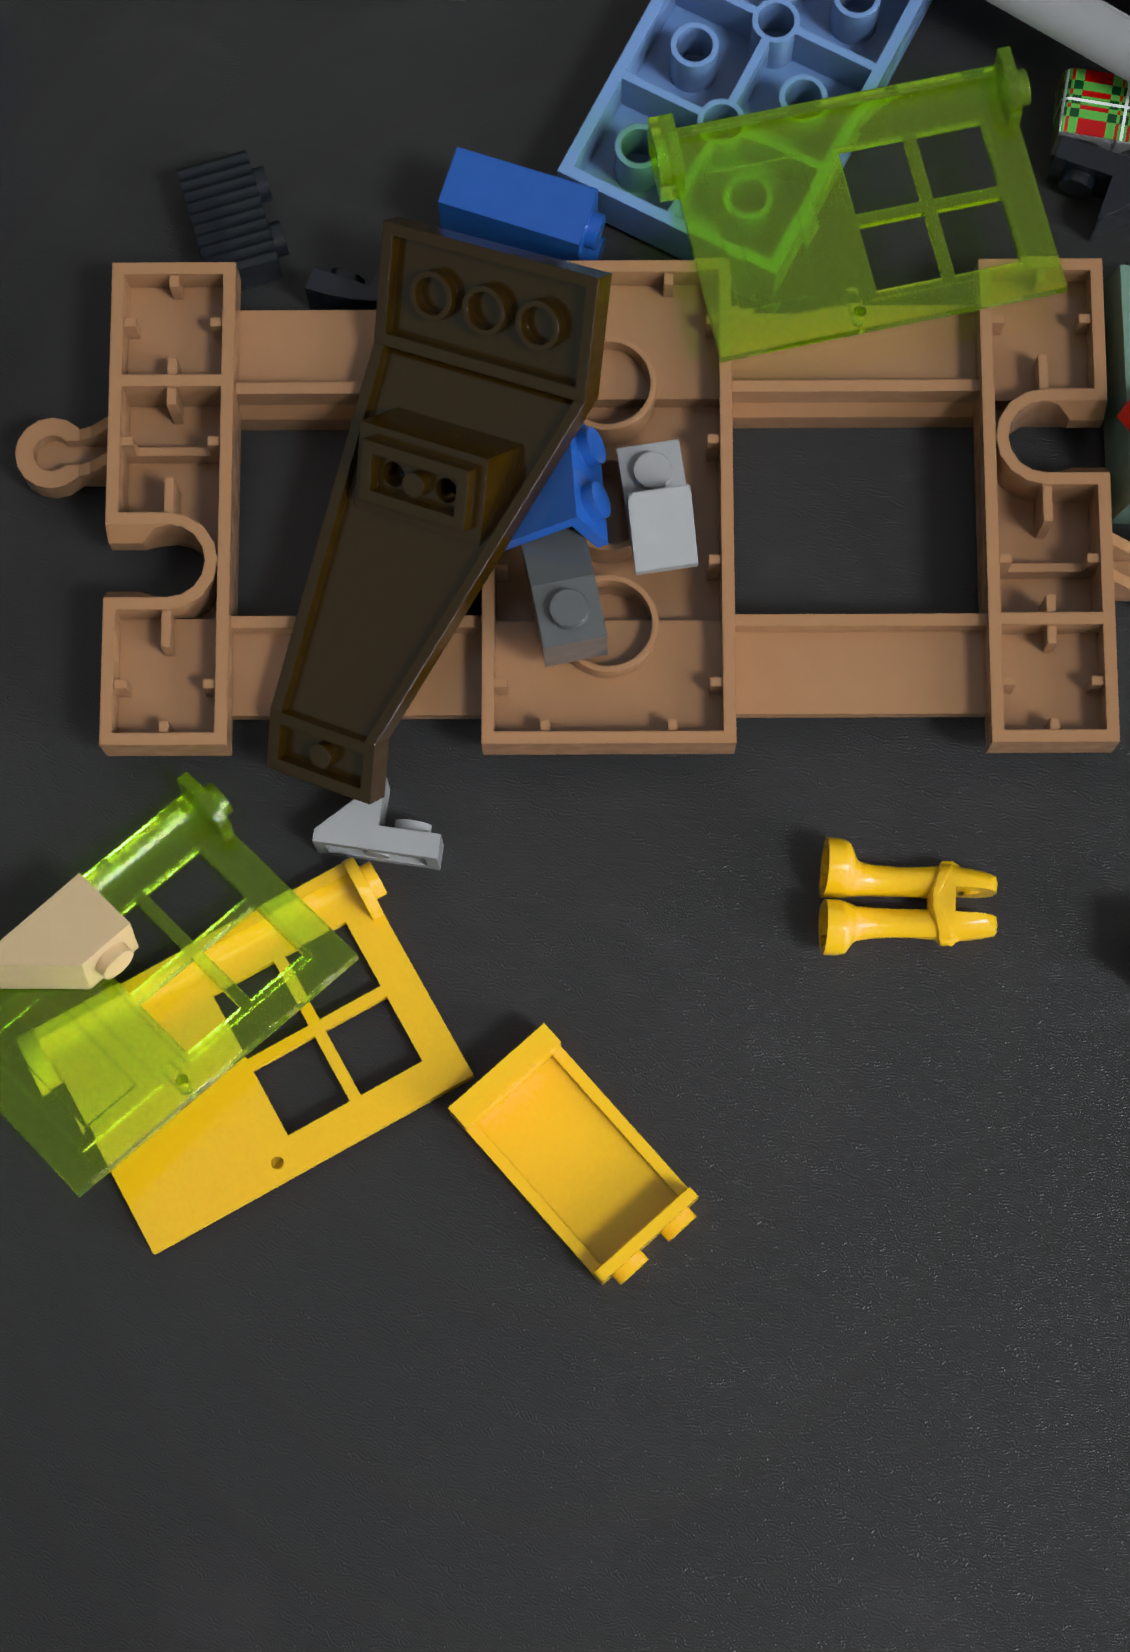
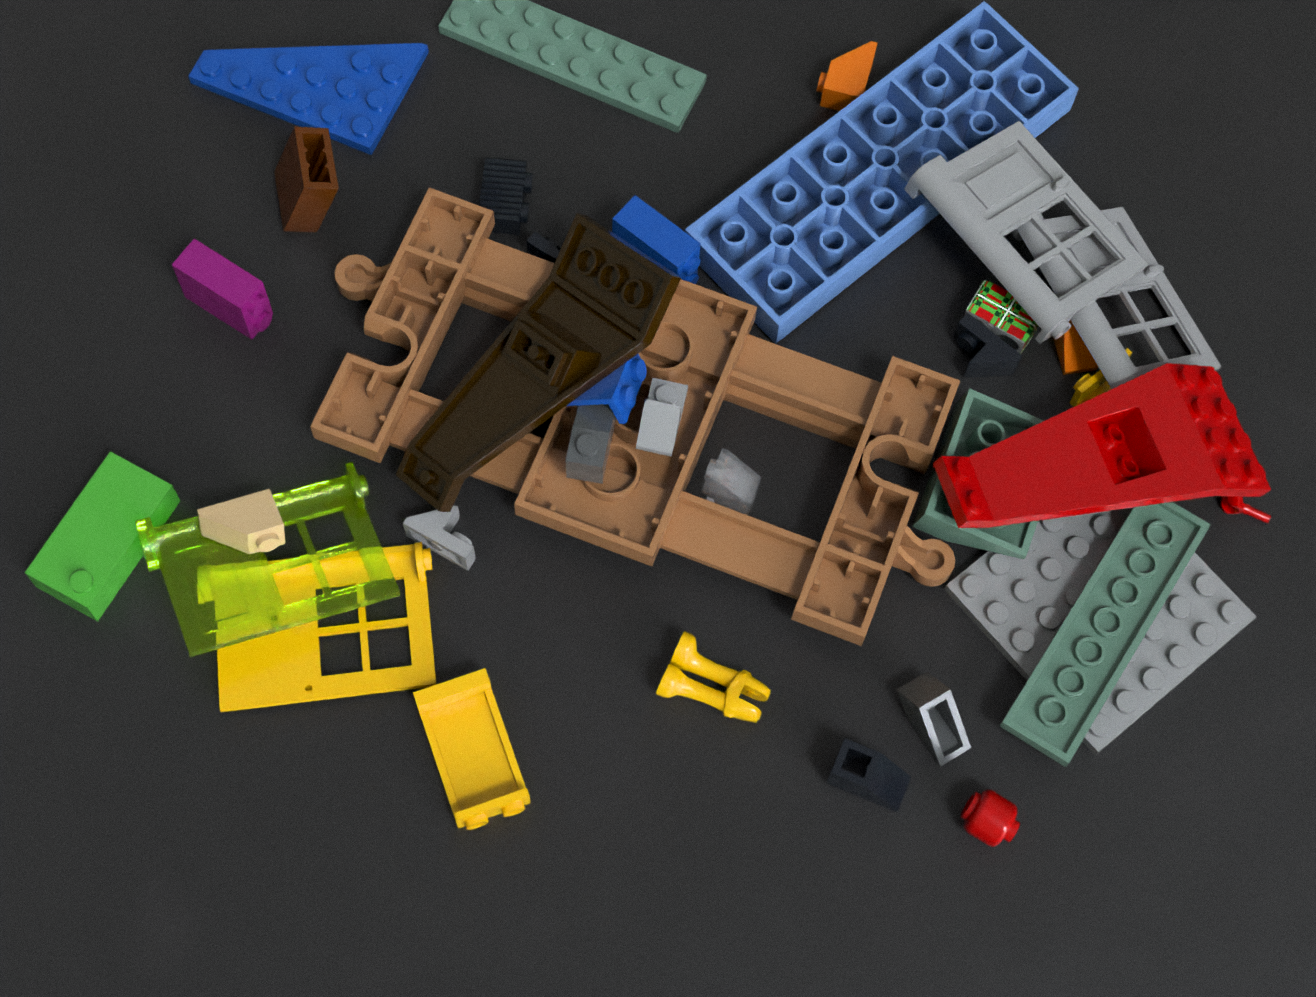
camera: 15 degrees right, 10 degrees down
(779, 225) = (791, 296): clear neon green door -> none
(803, 571) = (731, 482): none -> clear slope

